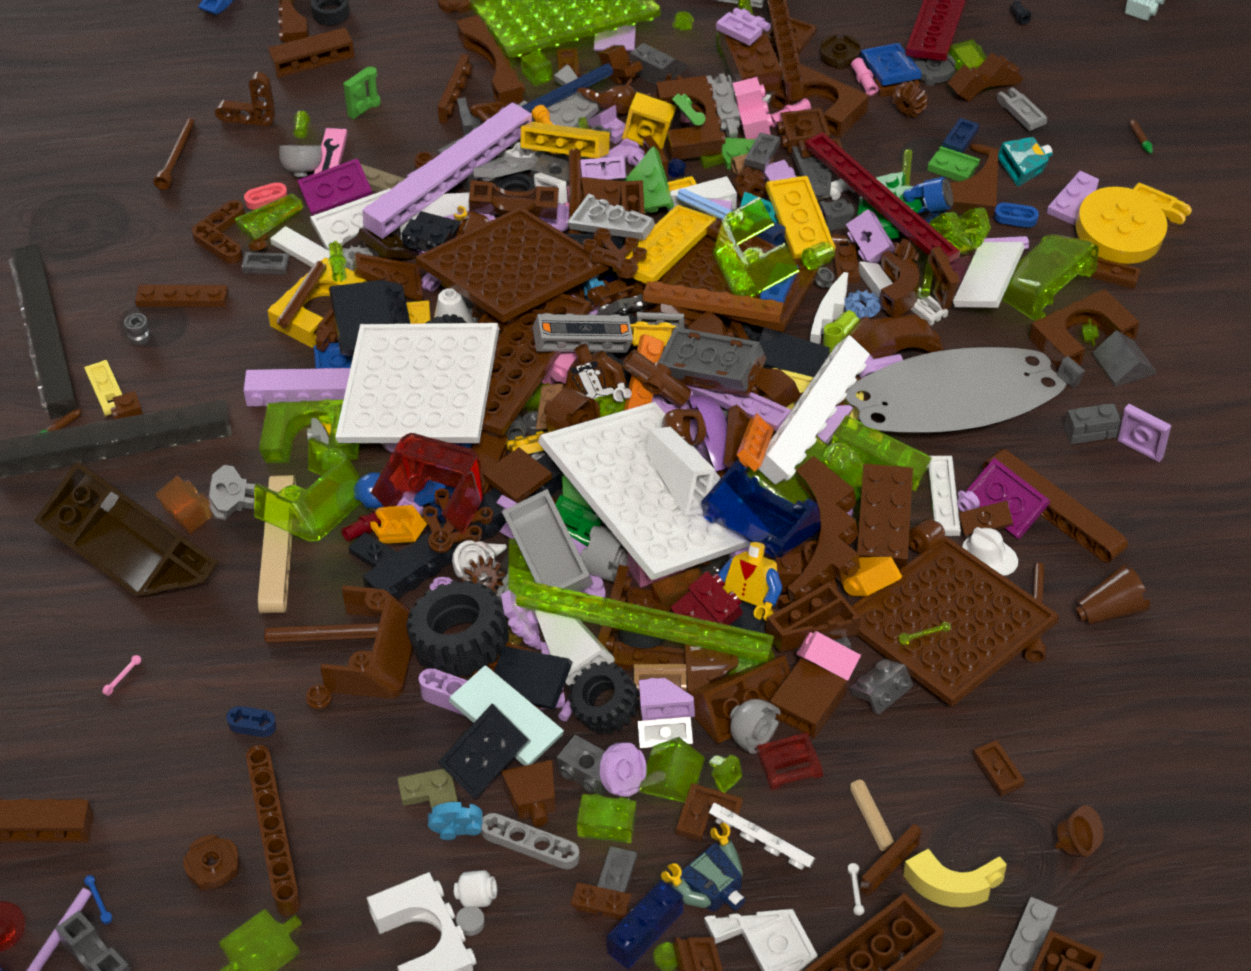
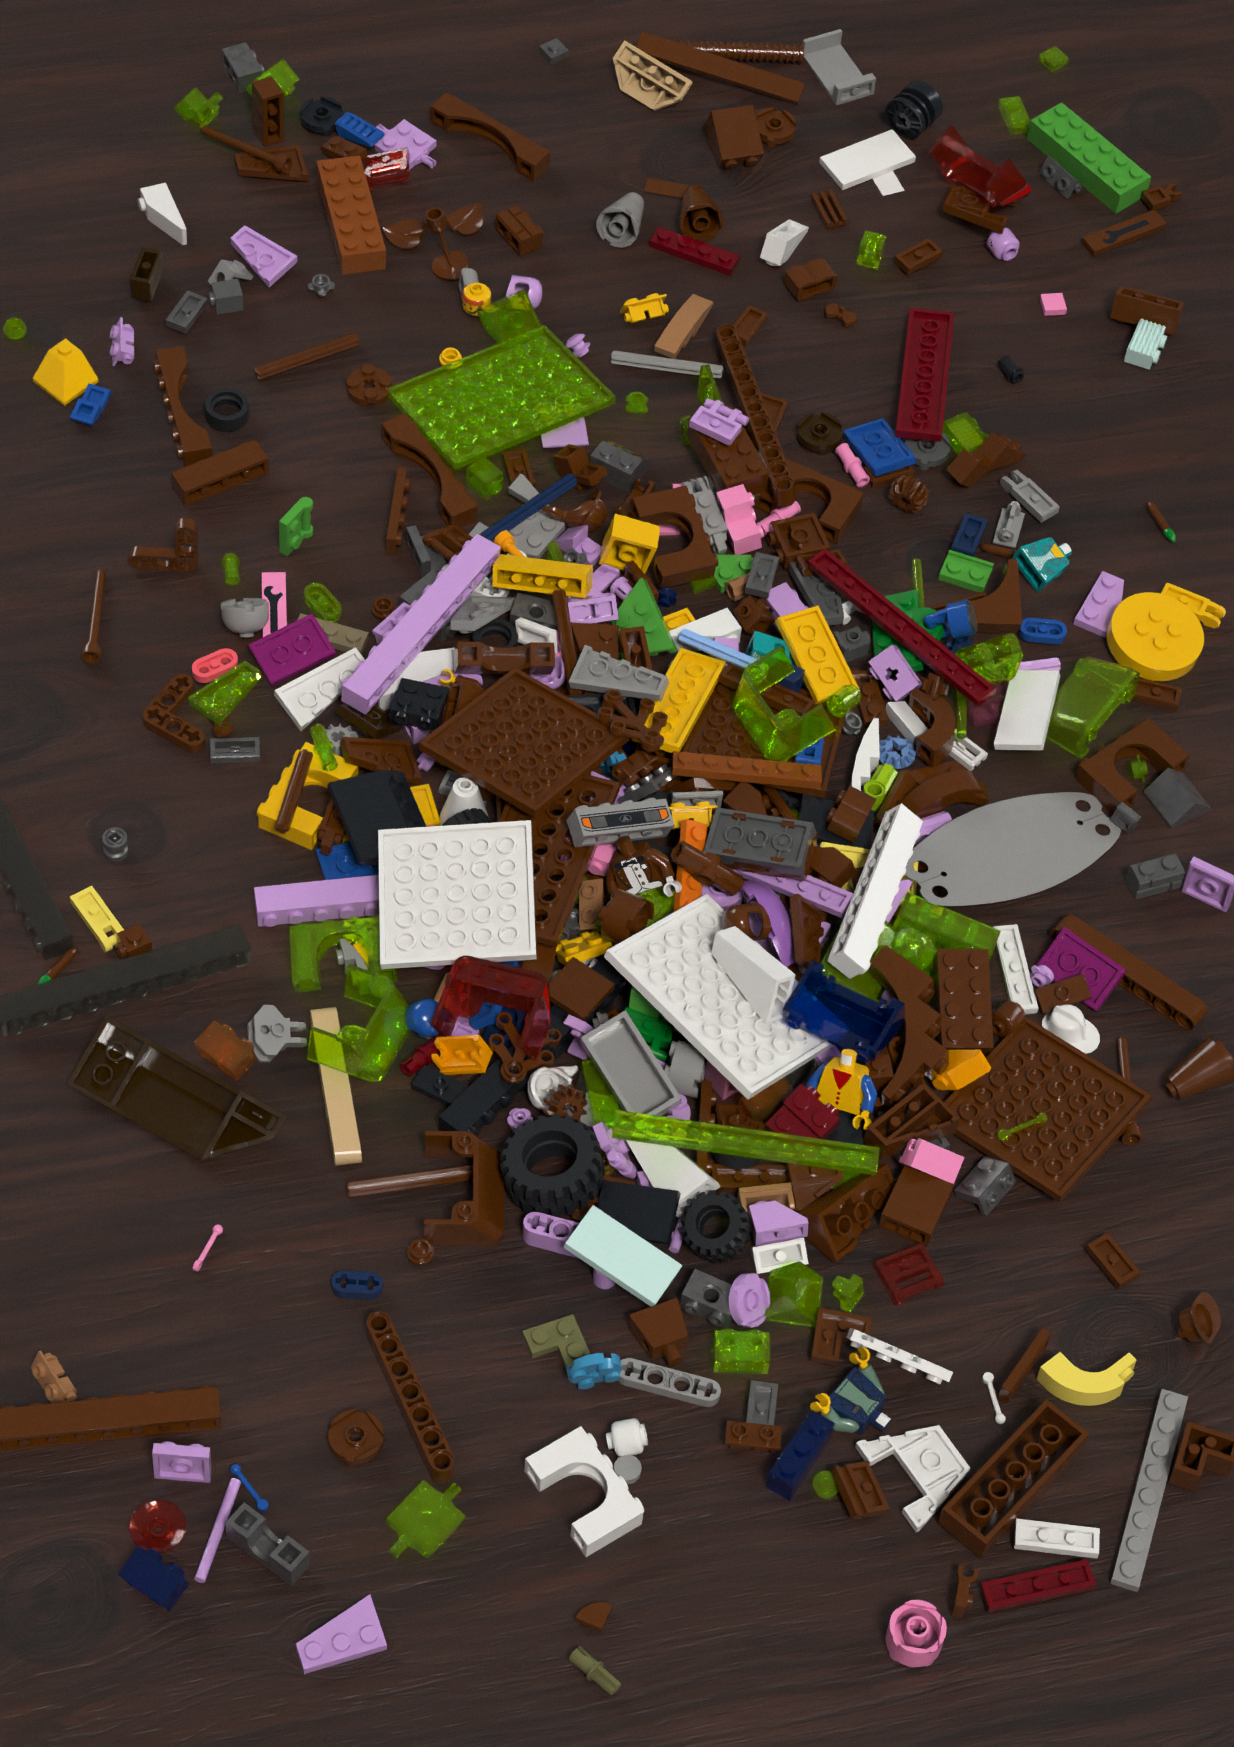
camera: 15 degrees left, 5 degrees up
(33, 867) = (182, 1462): none -> lavender plate
(181, 296) = (151, 798): reddish brown plate -> none
(299, 246) = (271, 728): white tile -> none
(372, 153) = (326, 605): none -> clear neon green plate
(484, 751) = (609, 1295): black tile -> none
(684, 105) = (671, 527): bright green plate -> none
(753, 723) = (868, 1239): light grey cylinder -> none
(755, 442) = (826, 936): orange plate -> none
(804, 345) = (851, 813): none -> reddish brown brick
(871, 814) = (997, 1321): tan axle -> none
(947, 279) = (987, 724): reddish brown plate -> none
(999, 130) = (1009, 525): none -> light grey hinge

